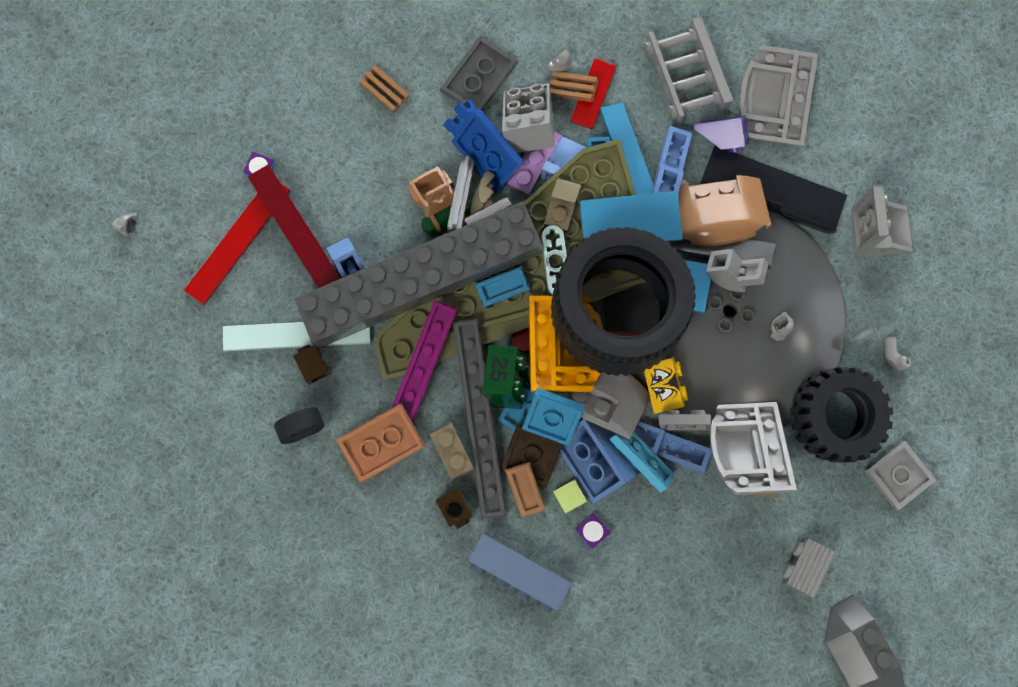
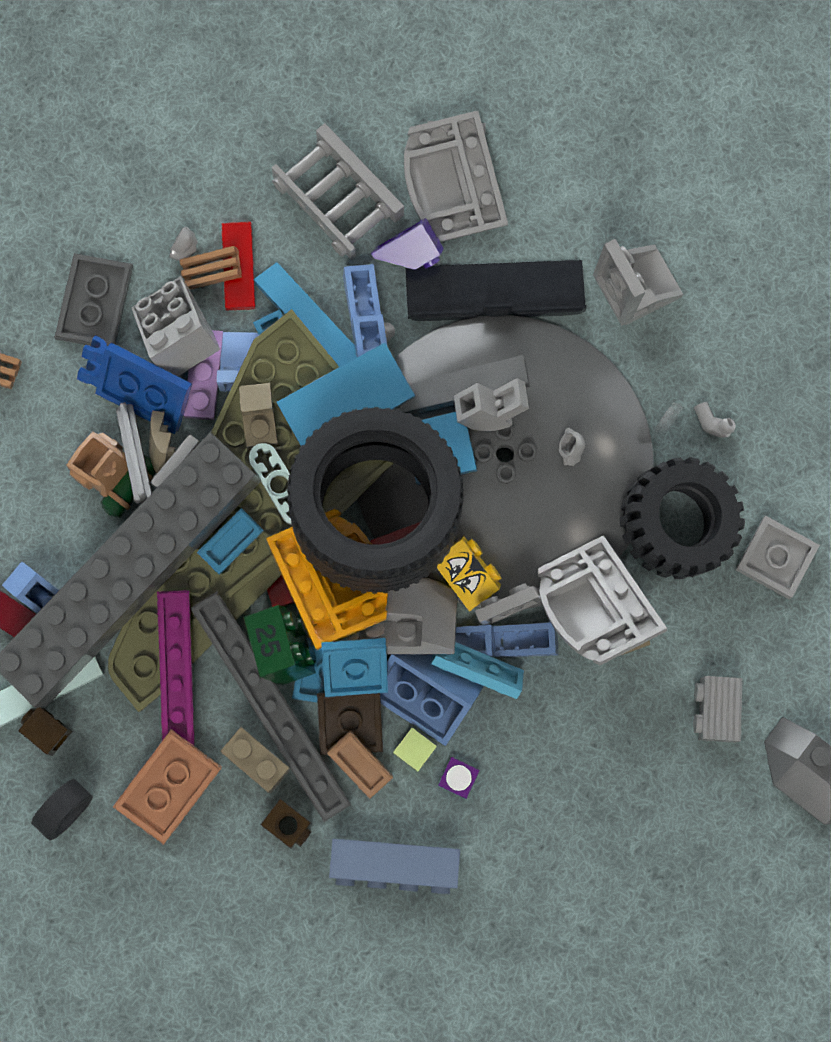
camera: 25 degrees left, 0 degrees up
(722, 211) = (446, 342): medium nougat slope -> none

